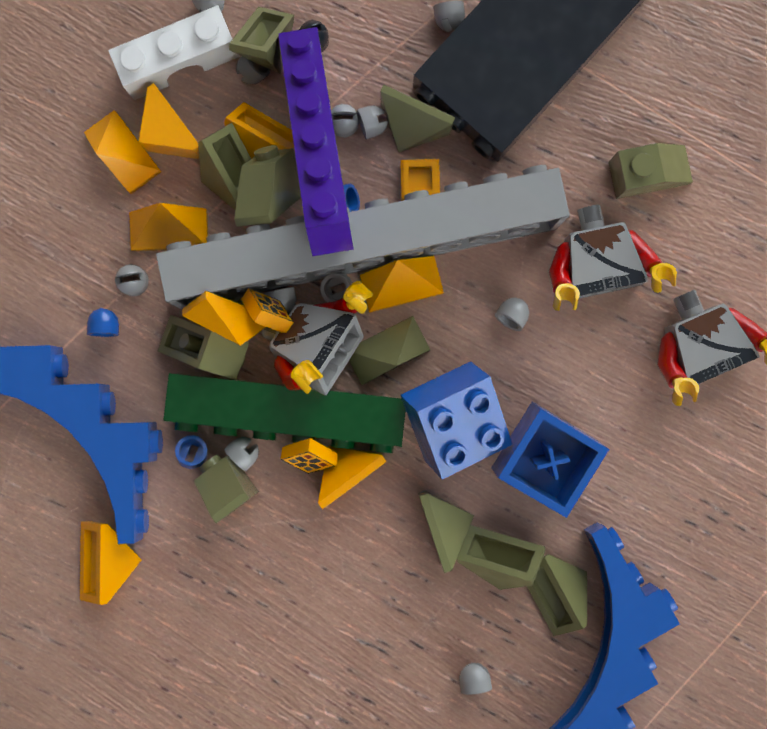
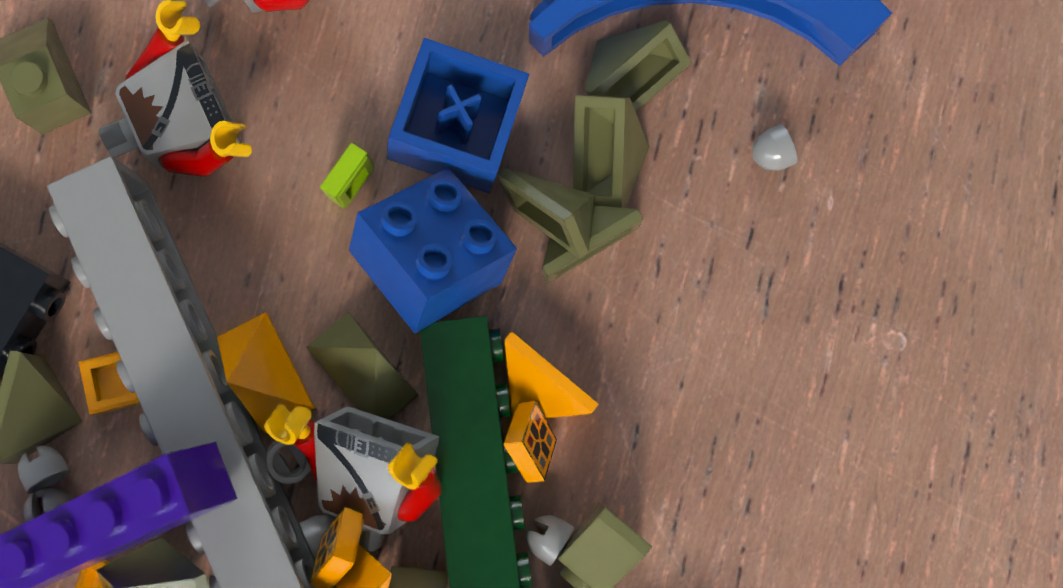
camera: 105 degrees left, 5 degrees down
(467, 511) = (552, 208): none -> olive slope
(513, 313) = (274, 211): light grey hinge -> none
(525, 371) = (348, 176): none -> lime tile

